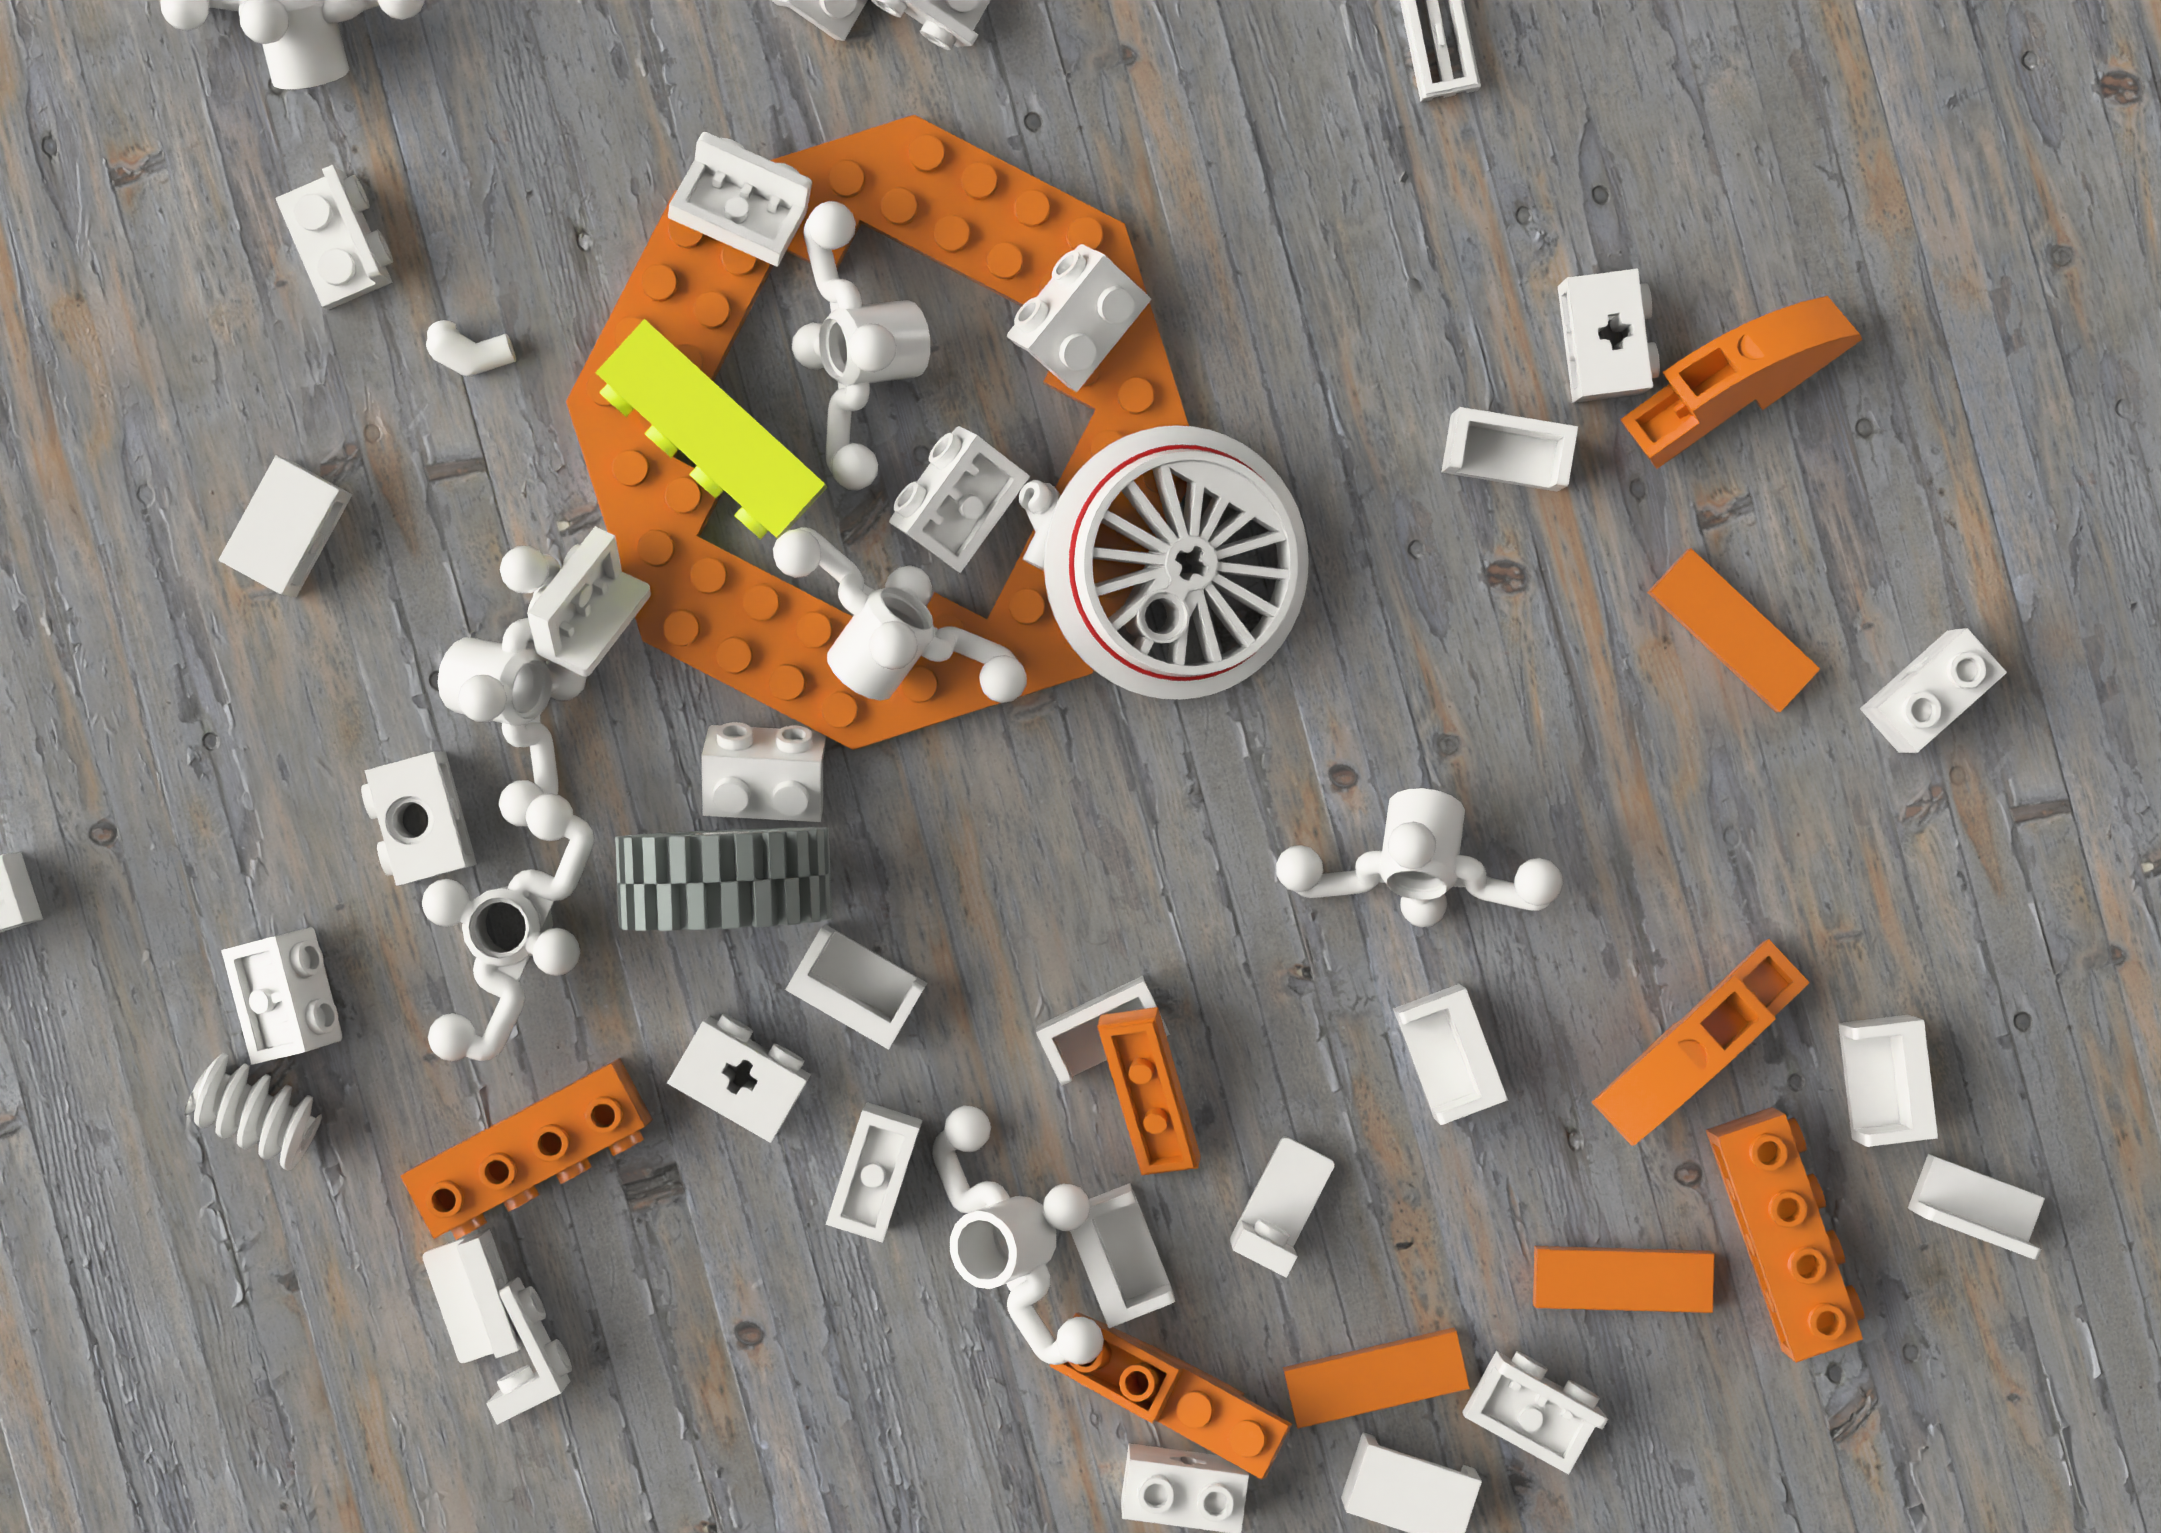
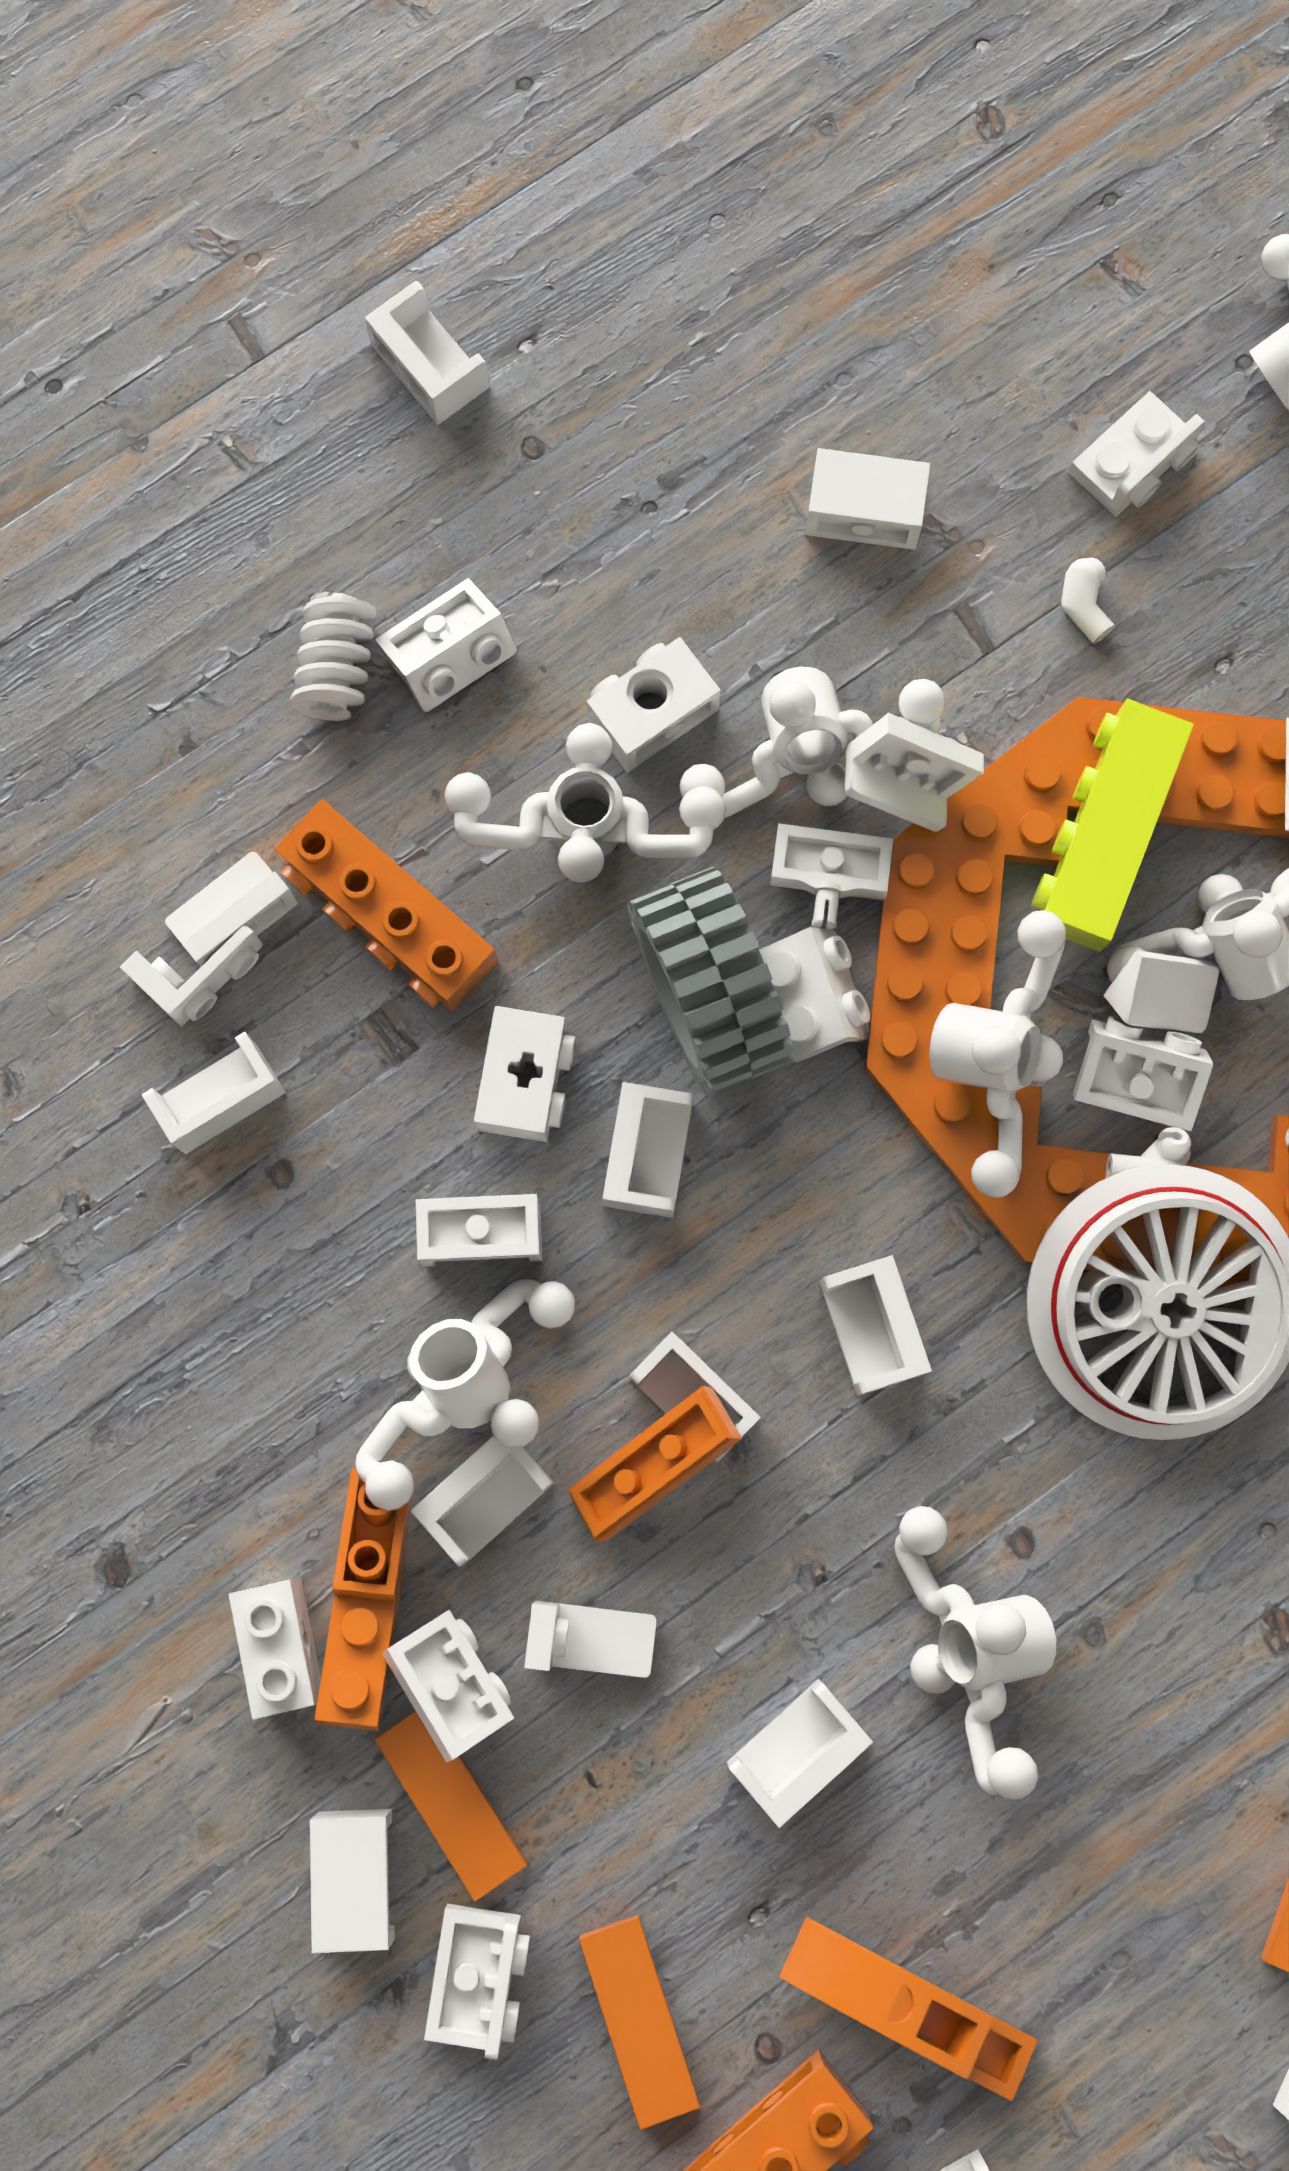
camera: 70 degrees right, 10 degrees down
(646, 708) = (831, 866): none -> white plate
(653, 1373) = (215, 1097): none -> white panel
(891, 446) = (1164, 992): none -> white slope
(1099, 838) = (875, 1325): none -> white panel
(1275, 1346) = (449, 1685): none -> white bracket

